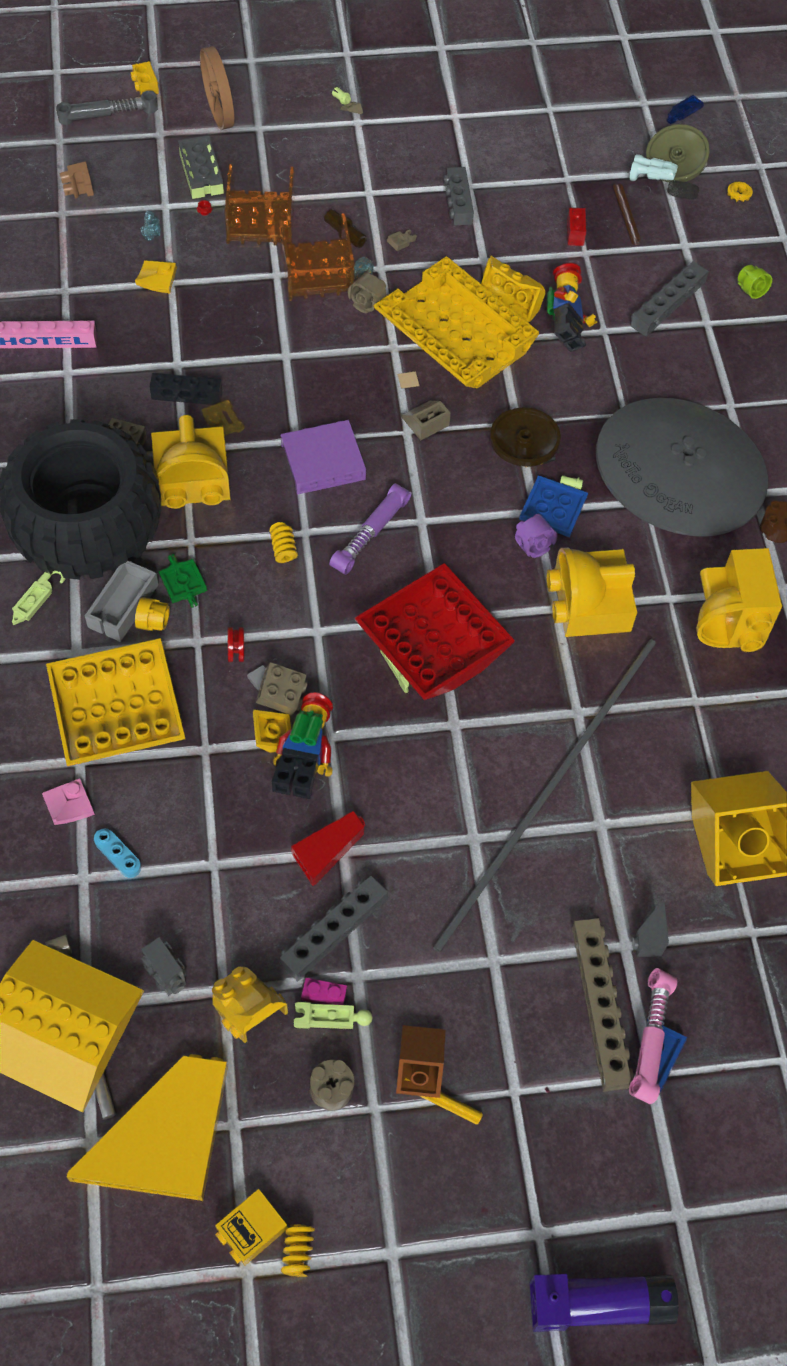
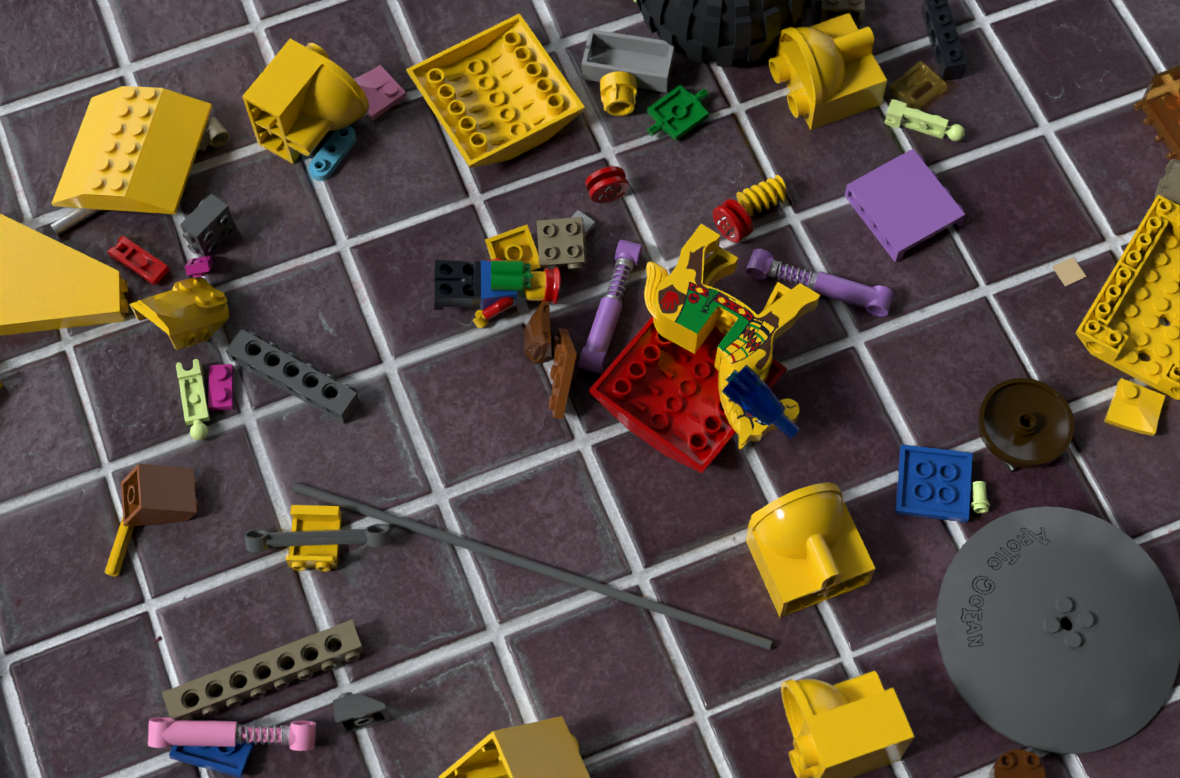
camera: 80 degrees right, 5 degrees up
(76, 850) = (301, 100): none -> yellow piece
(171, 1042) = (138, 260): none -> red plate
(201, 983) = (199, 266): none -> dark pink plate
(251, 428) = (914, 119): none -> yellowish green plate
(300, 567) = (732, 220): none -> red head
(327, 846) = (386, 344): red slope -> none
(331, 1072) = (109, 408): dark tan brick -> none
(357, 726) = (538, 335): none -> reddish brown slope
(385, 694) = (595, 352): none -> medium lavender piece
(389, 606) = (689, 308): none -> yellow animal
(397, 715) = (561, 372): none -> dark orange plate
(427, 418) = (1008, 303): dark tan slope -> none
(482, 574) = (758, 400): none -> clear blue piece
(490, 942) = (314, 519): none -> yellow panel
(492, 937) = (374, 536): none -> dark grey piece
(528, 376) = (1135, 408): none -> yellow plate
(535, 536) = (872, 467): medium lavender brick -> none

